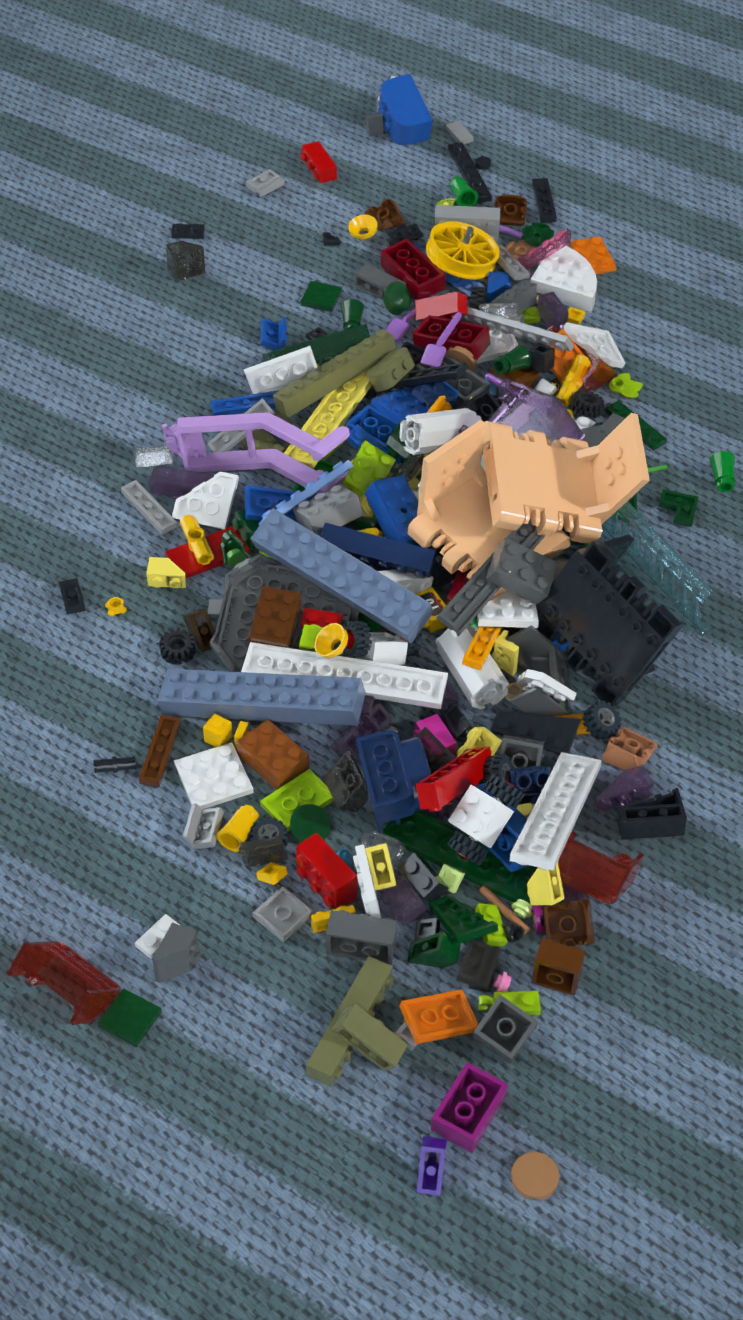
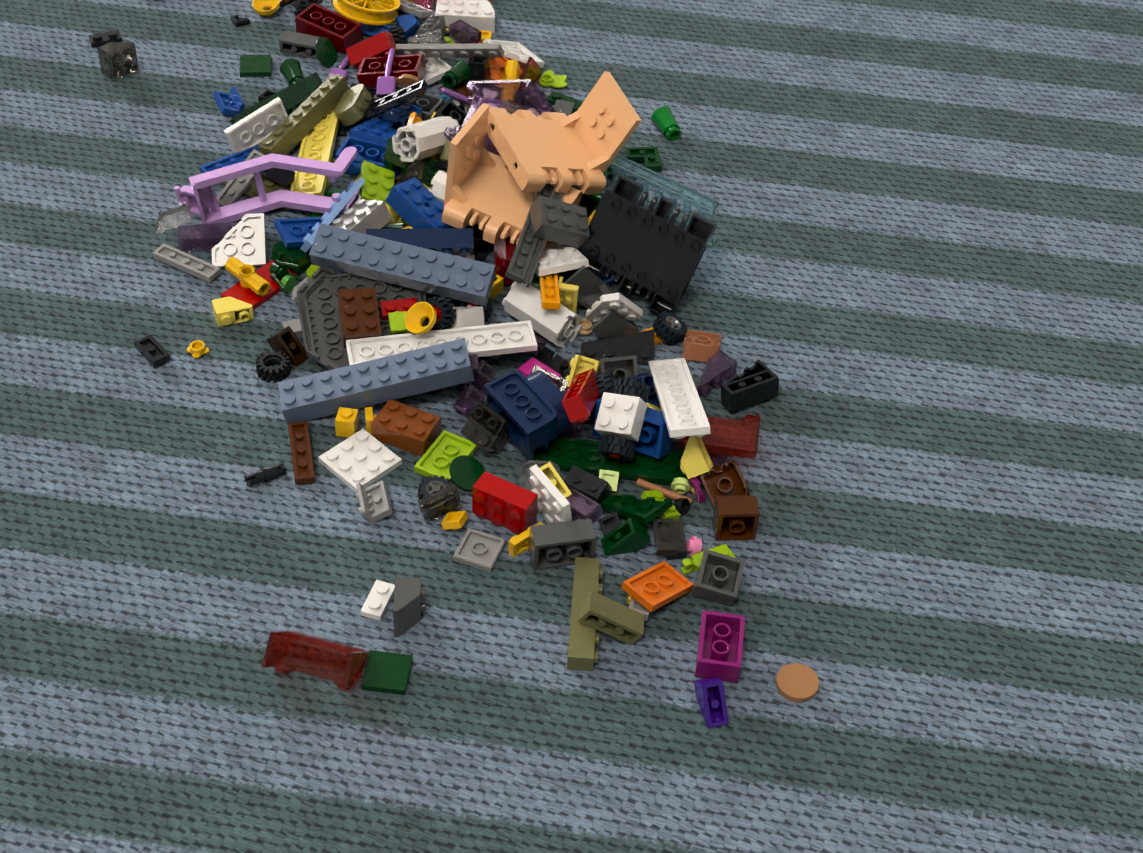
camera: 25 degrees left, 5 degrees down
(238, 828) = (406, 494): yellow plant -> none

